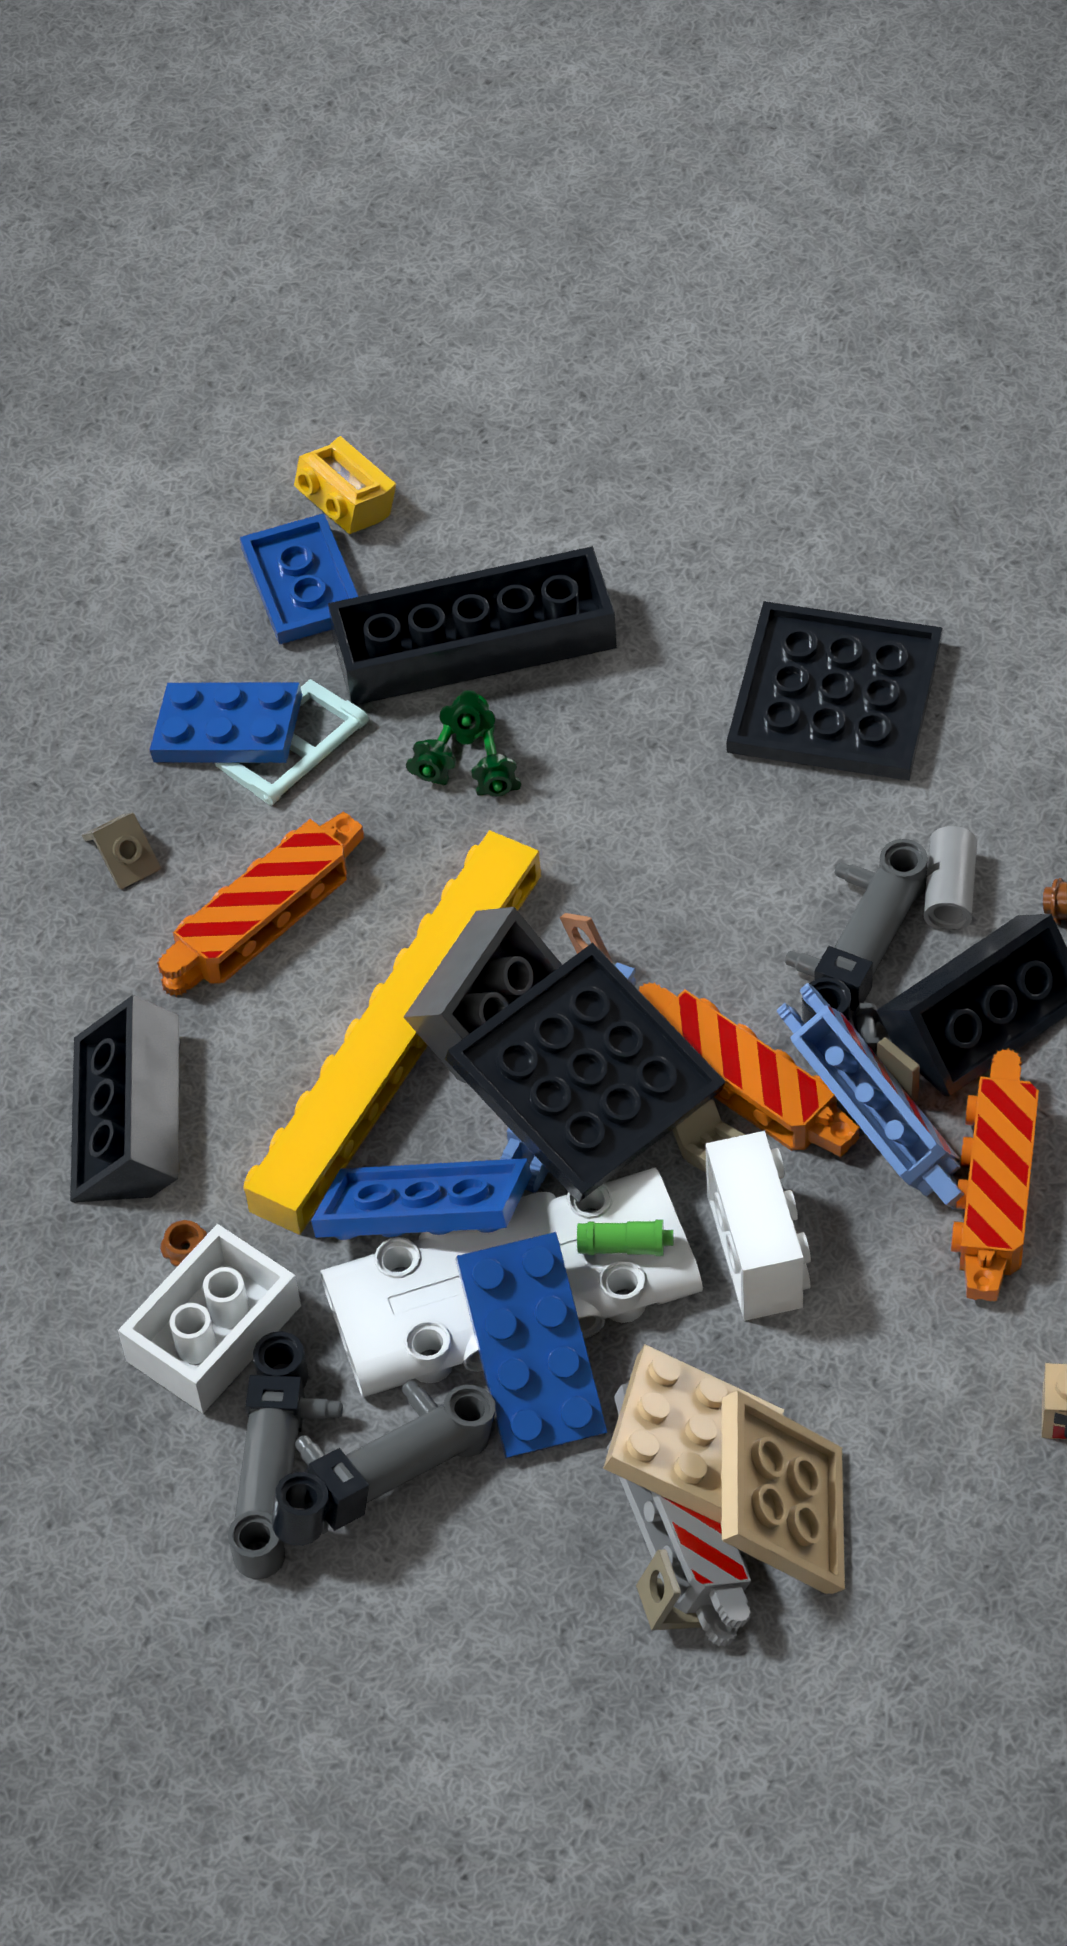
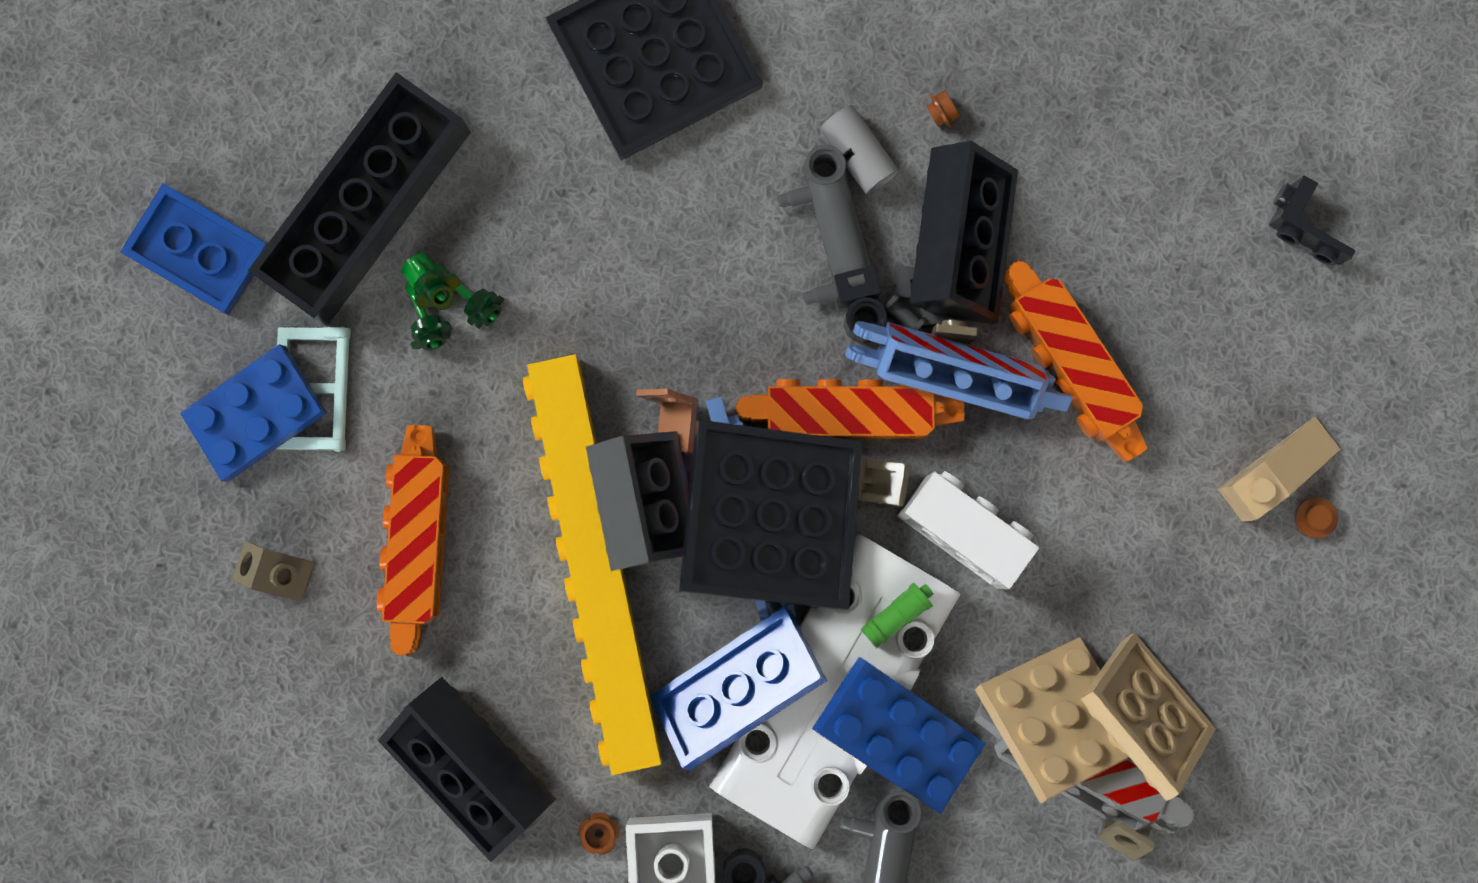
camera: 45 degrees left, 30 degrees up
(345, 485) = (156, 147): yellow window -> none

